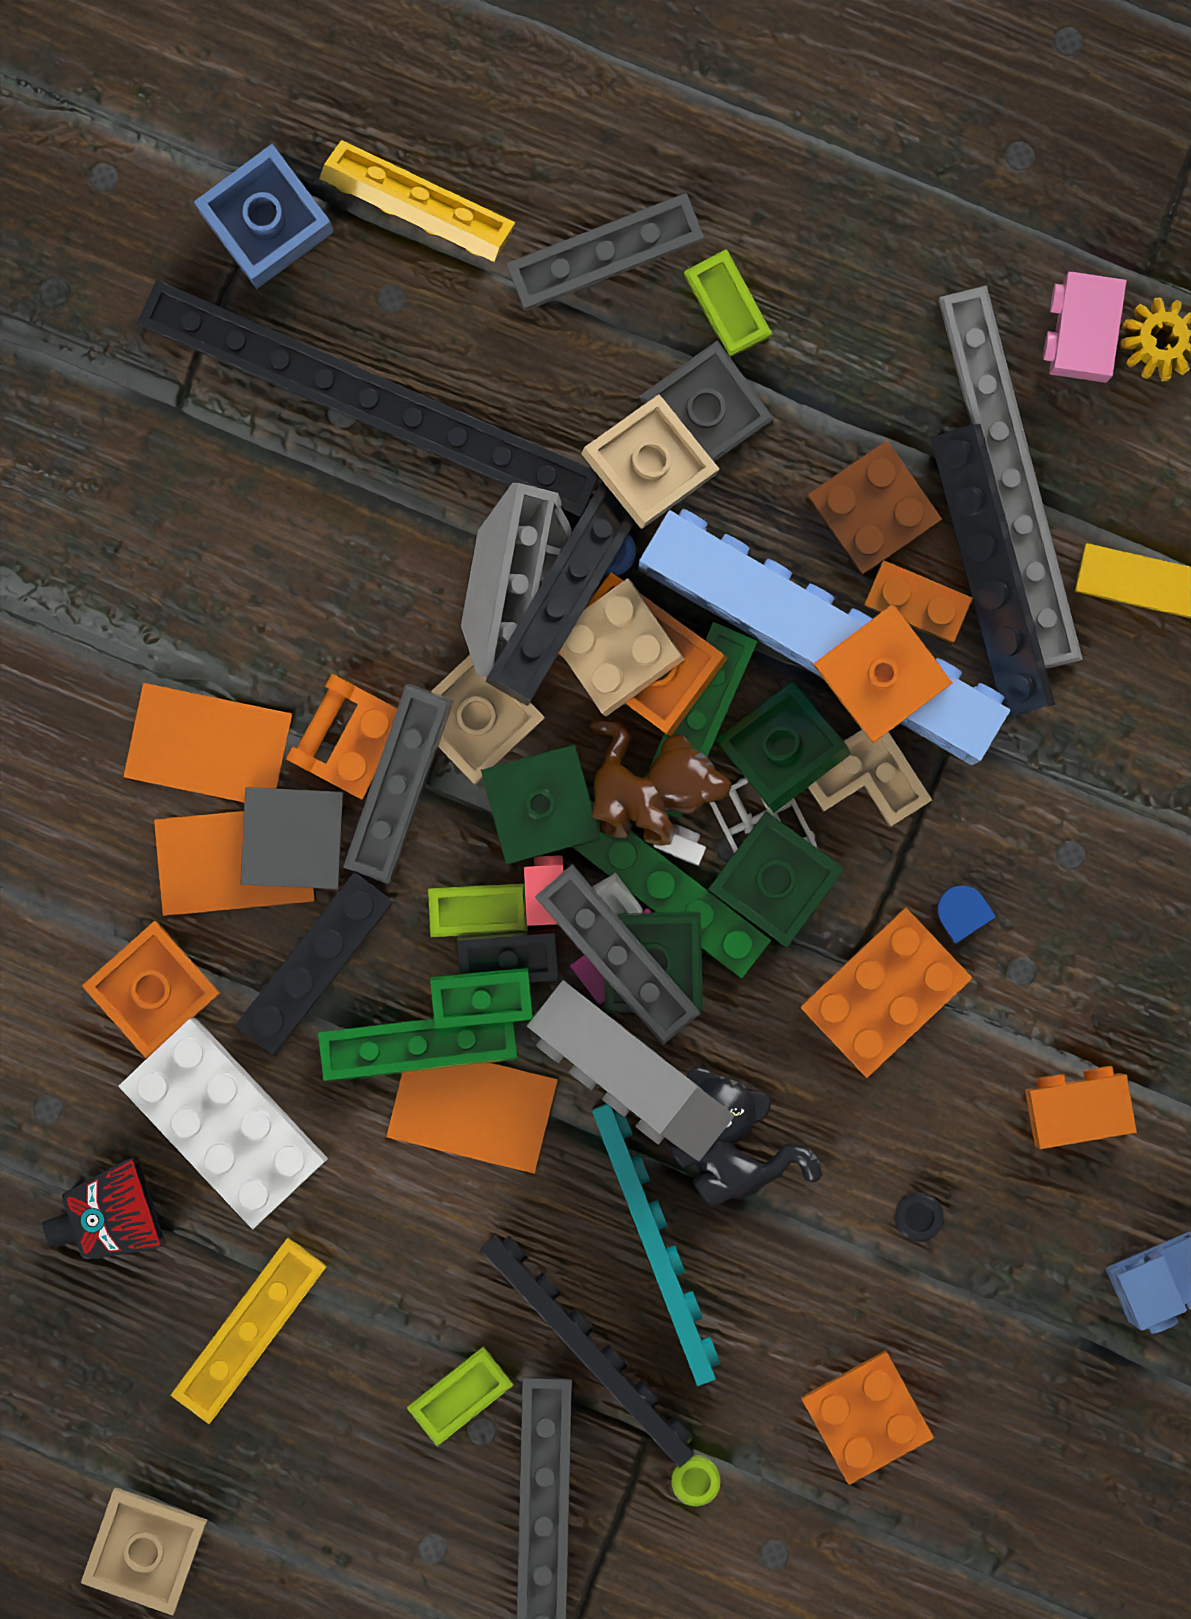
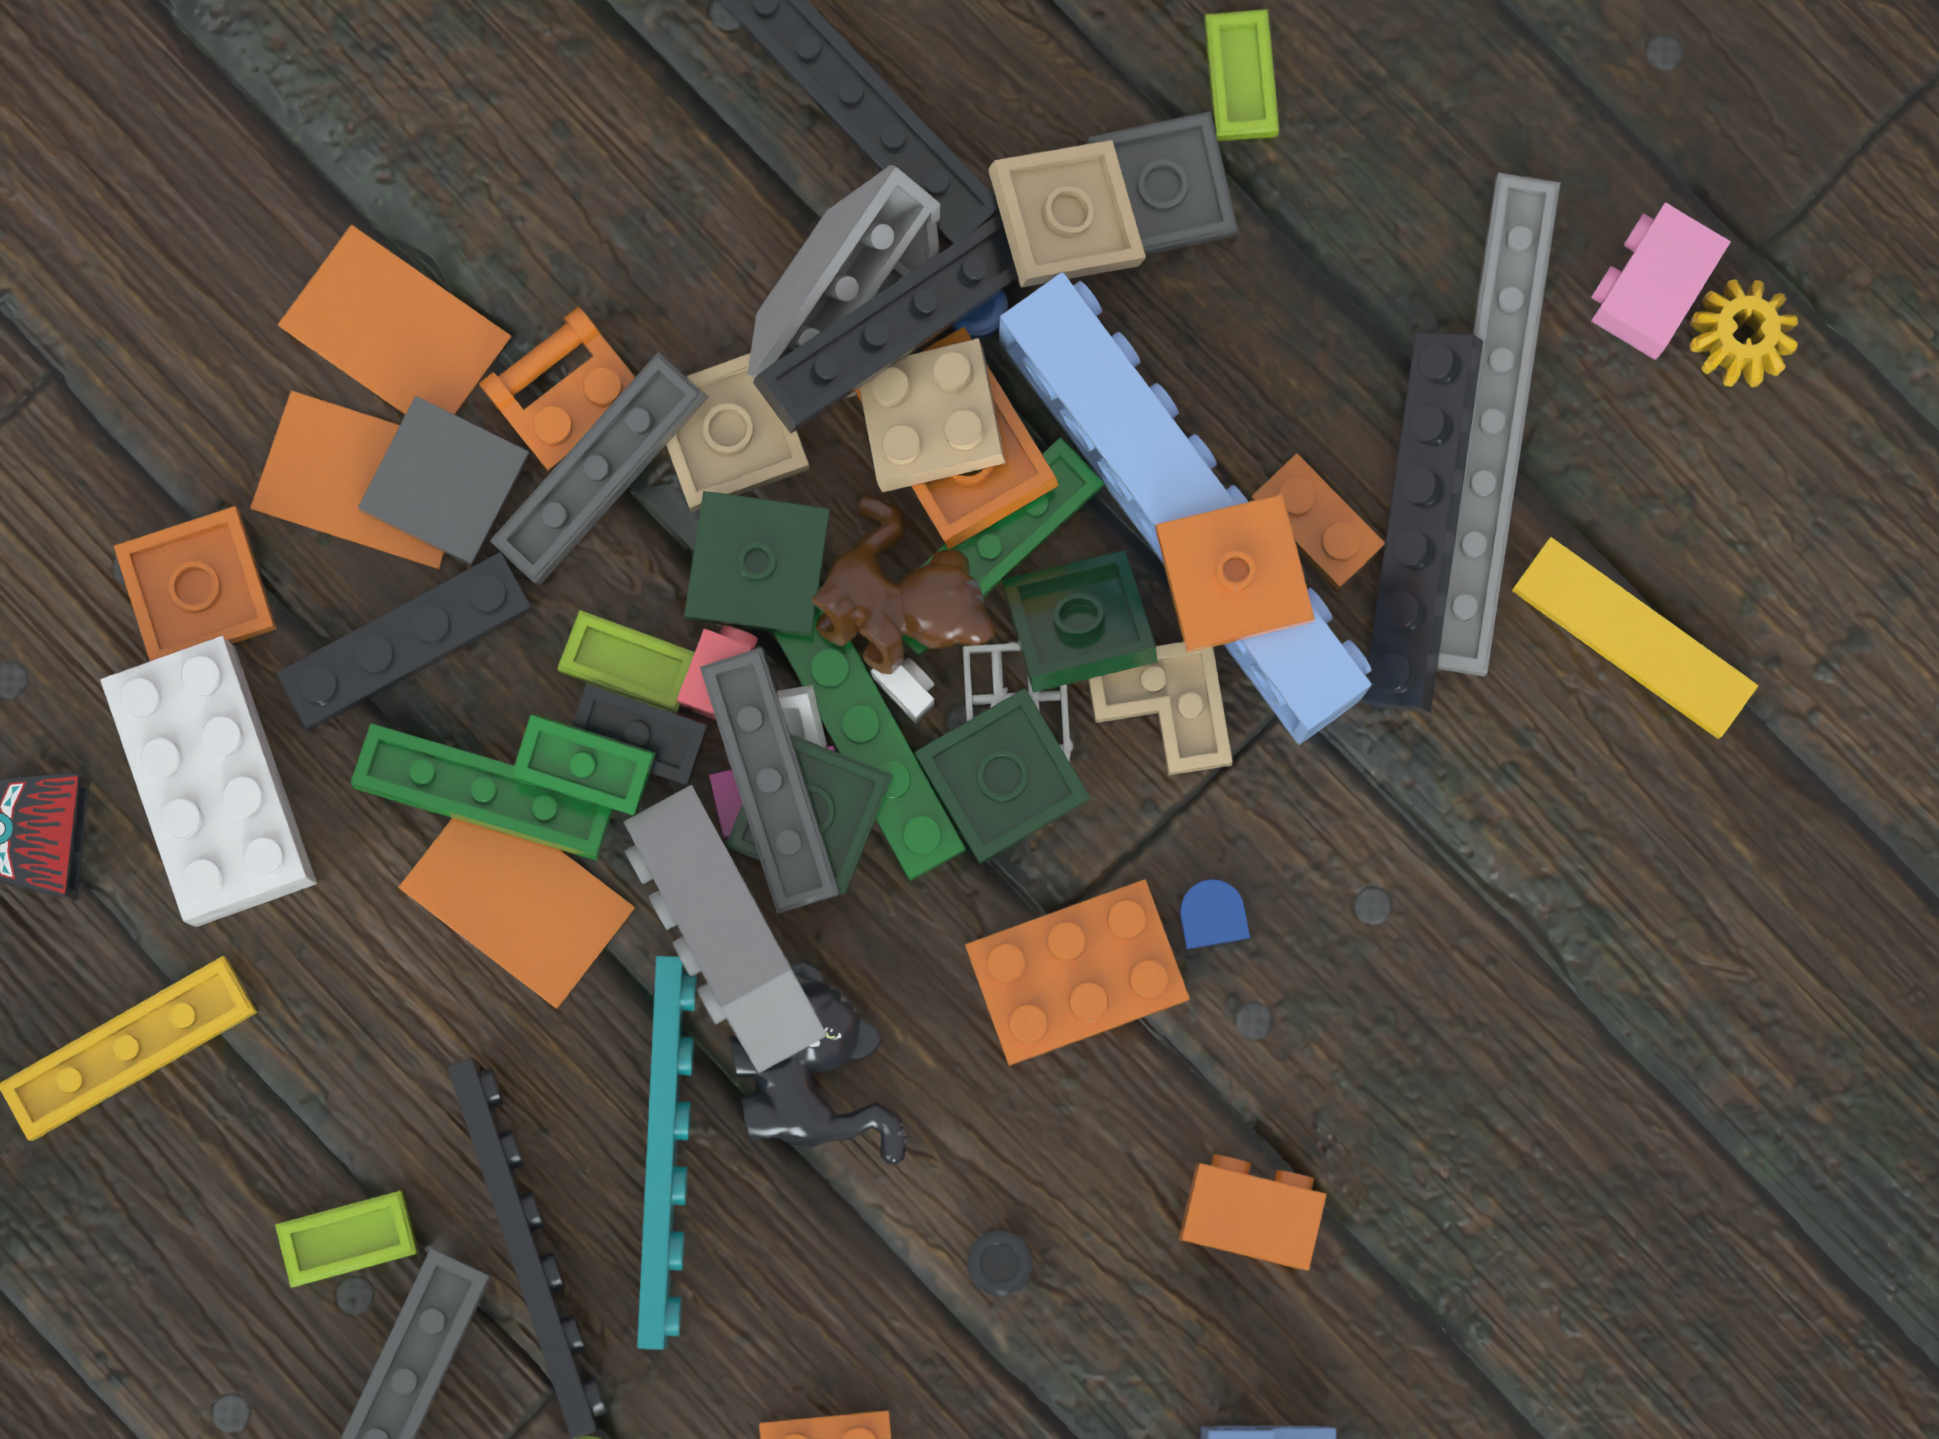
camera: 20 degrees right, 5 degrees down
(874, 507) = (1313, 388): dark orange plate -> none

